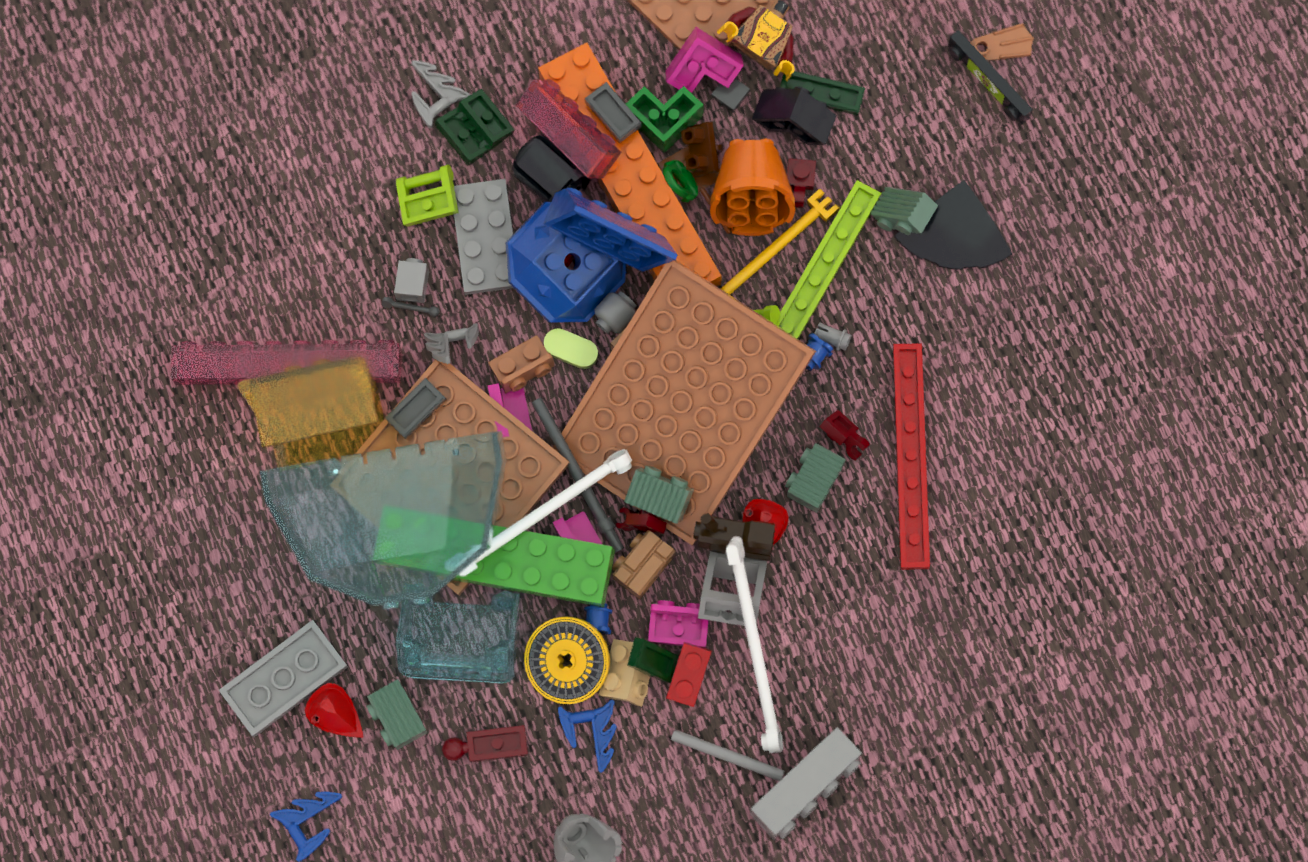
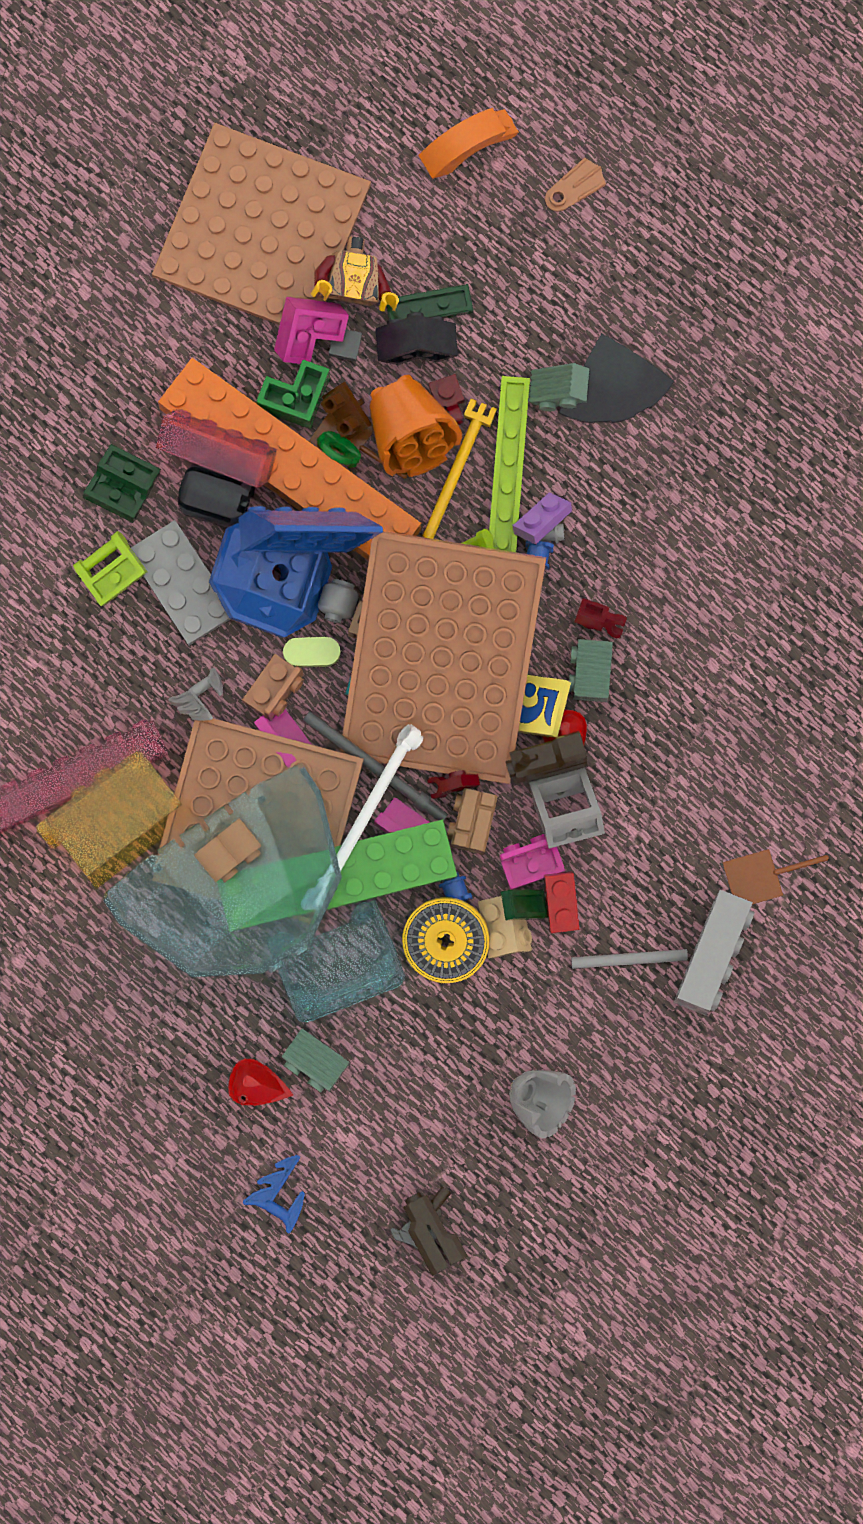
camera: 30 degrees left, 5 degrees up
(283, 678) = (195, 1075): light grey plate -> none
(388, 303) = (122, 685): dark grey hinge -> none
(402, 484) = (228, 850): none -> medium nougat brick
(411, 280) = (134, 655): light grey brick -> none
(415, 408) = (198, 773): dark grey tile -> none
(447, 93) = (81, 462): light grey piece -> none
(488, 744) = (410, 1049): dark red plate -> none
(599, 718) = (499, 979): blue piece -> none
(613, 112) = (249, 414): dark grey tile -> none
(659, 494) = (460, 751): sand green brick -> none
(755, 488) = (543, 706): none -> light yellow tile
(772, 739) = (663, 926): white hinge -> none
(833, 321) = (542, 518): none -> medium lavender plate
(879, 734) = (756, 878): none -> dark orange piece
(911, 457) = (668, 611): red plate -> none
(1014, 104) = (542, 208): black plate -> none

